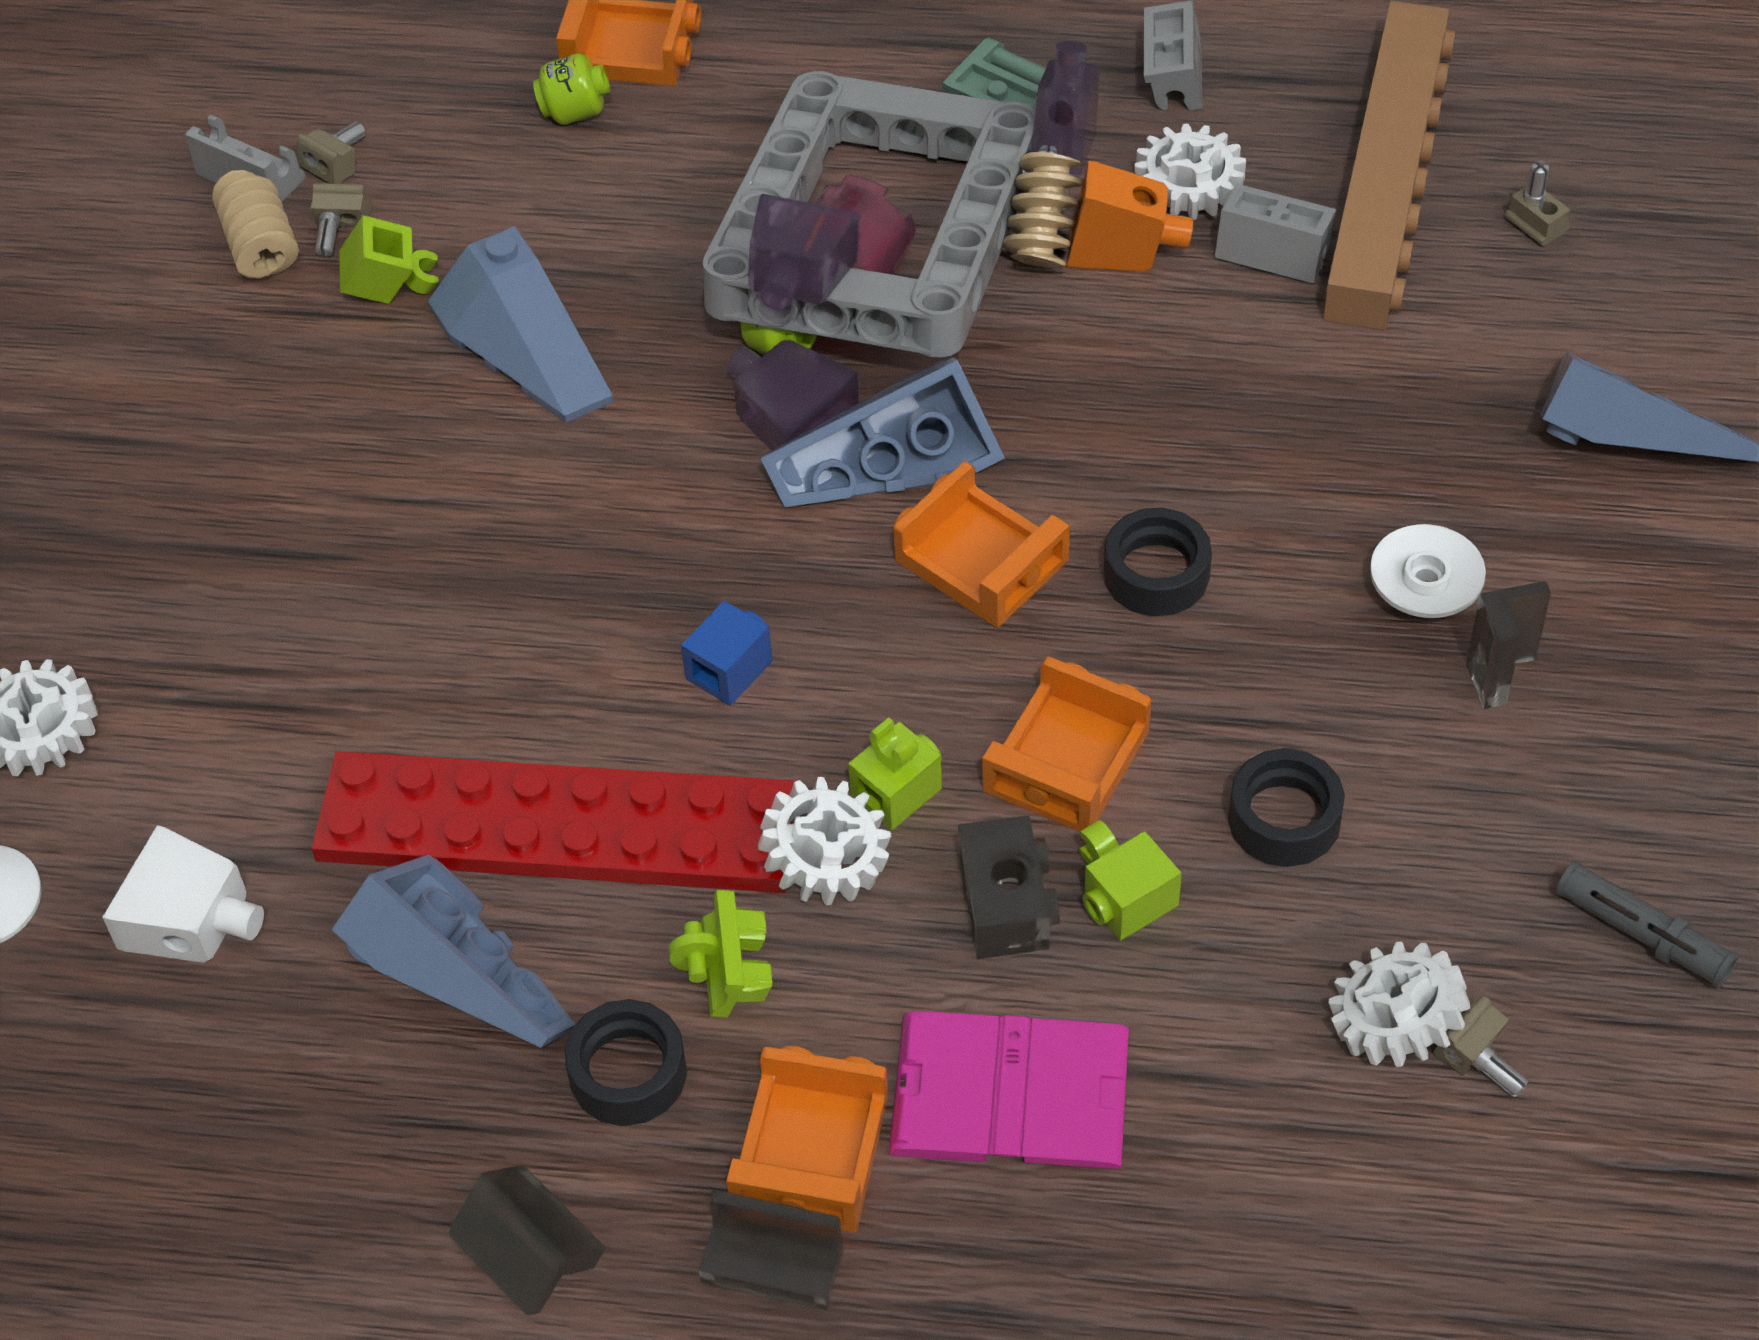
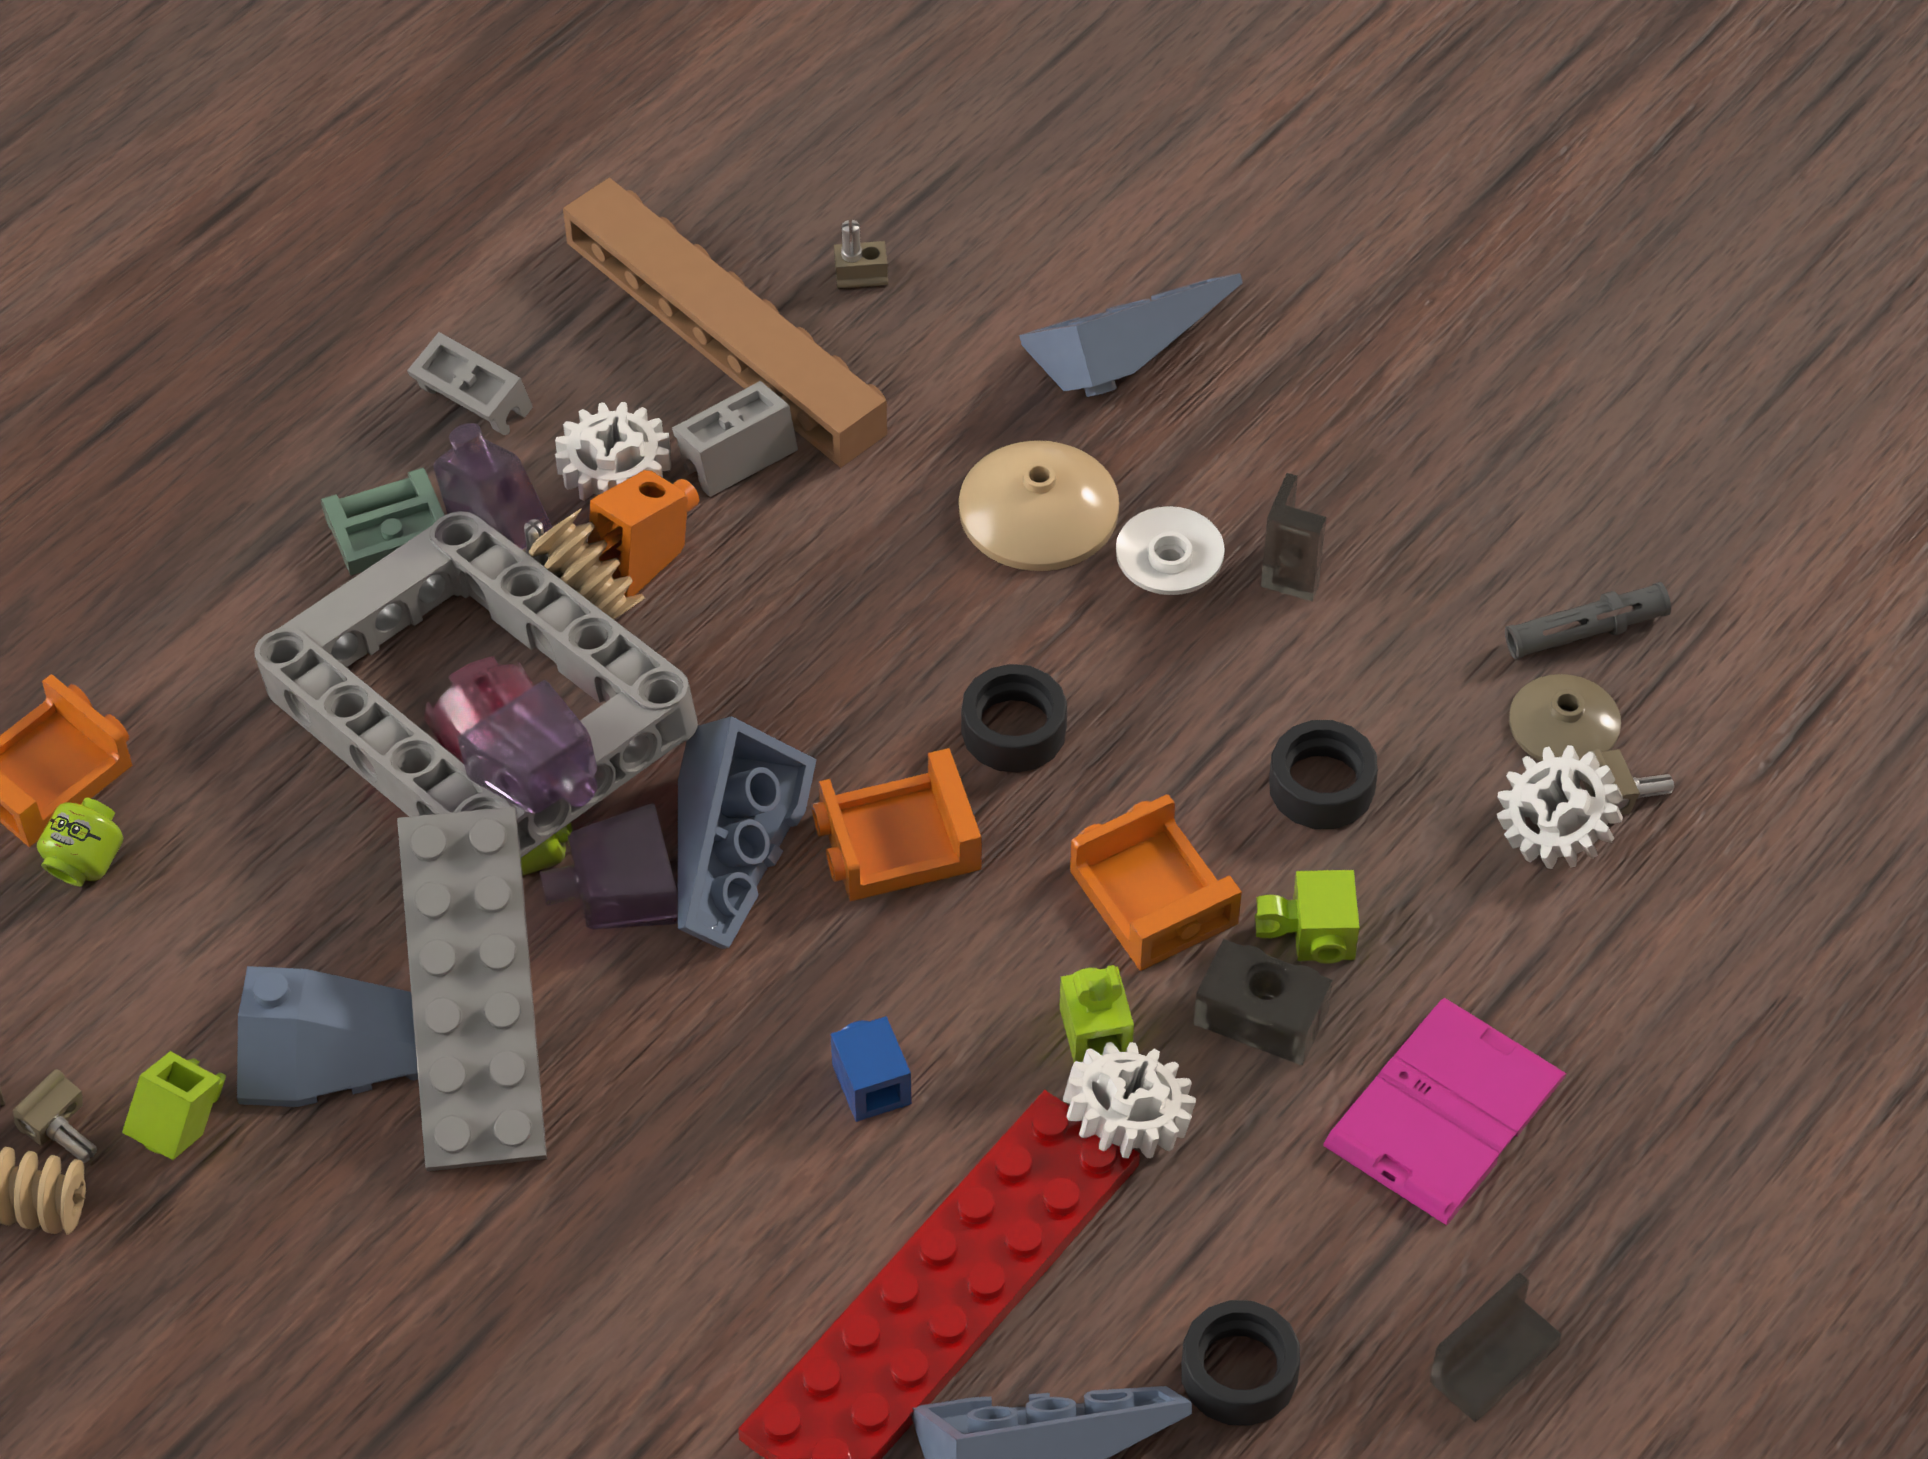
camera: 60 degrees left, 0 degrees up
(589, 356) = (471, 989): none -> light grey plate
(713, 953) = (1187, 1234): lime hips -> none
(812, 1133) = (1404, 1268): orange panel -> none
(1405, 464) = (1038, 505): none -> tan dish
(1520, 989) = (1540, 722): none -> dark tan dish

